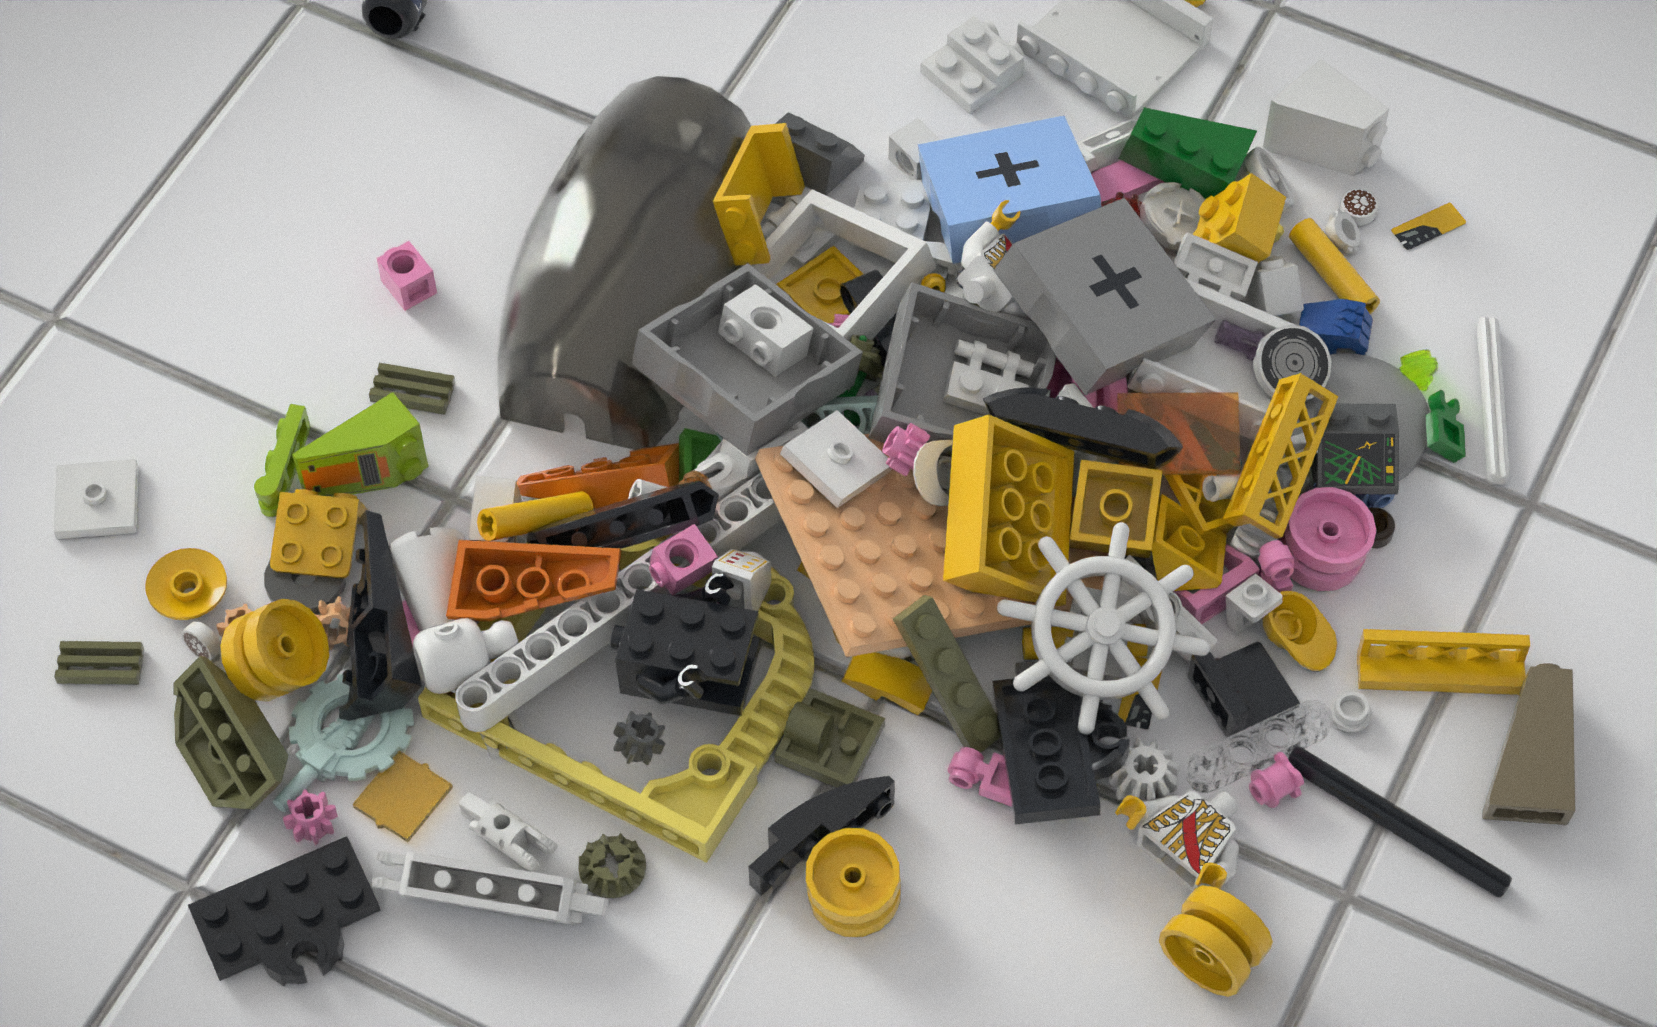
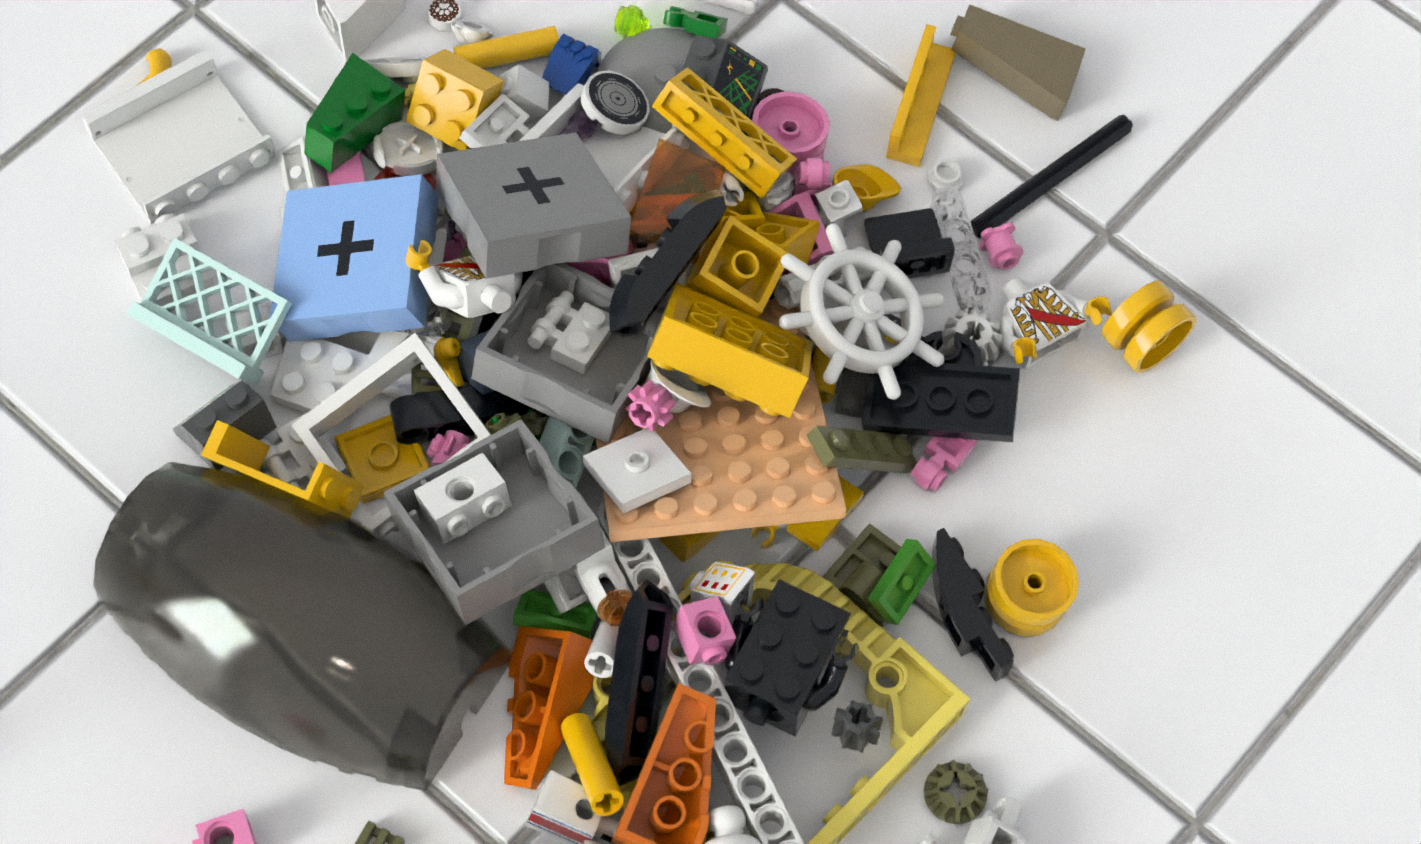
camera: 80 degrees left, 5 degrees up
(817, 752) = (902, 581): none -> bright green plate
(895, 98) = (201, 341): none -> light aqua fence

